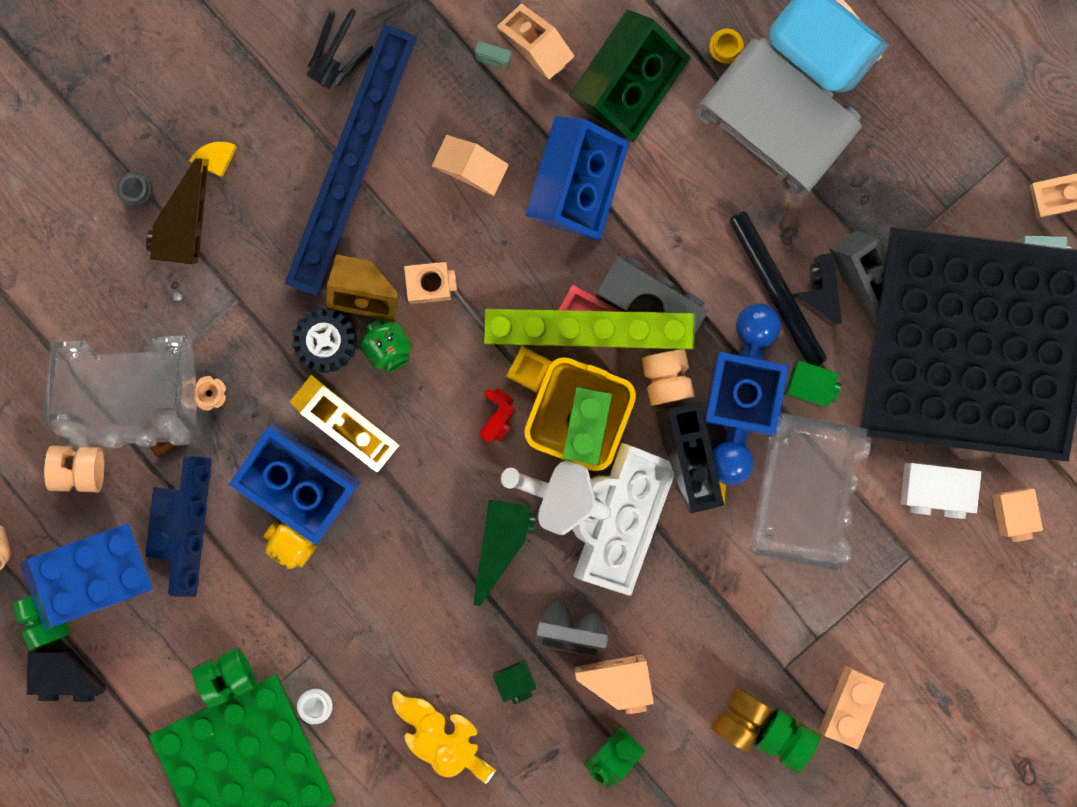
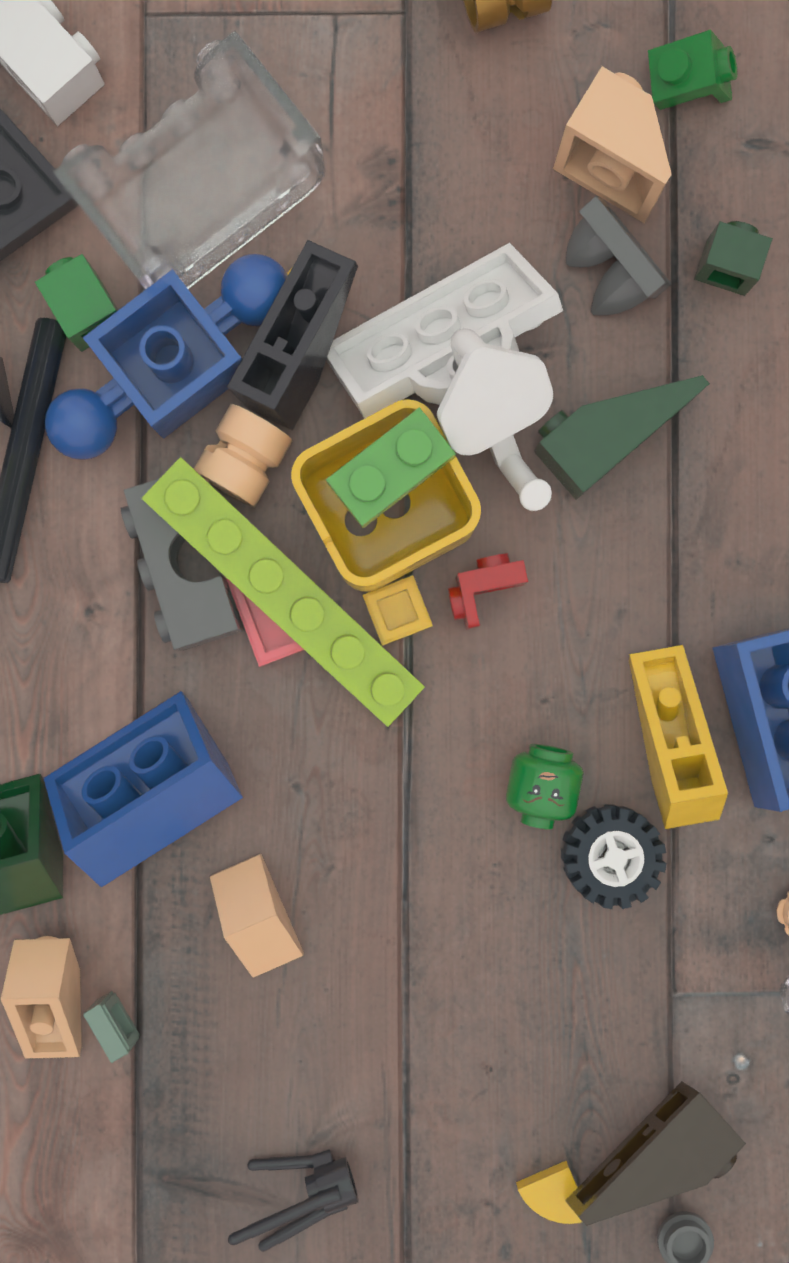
camera: 130 degrees left, 0 degrees up
(351, 160) = (392, 1048): dark blue plate -> none
(360, 289) = (519, 882): pearl gold slope -> none
(414, 276) = (438, 839): light nougat brick -> none

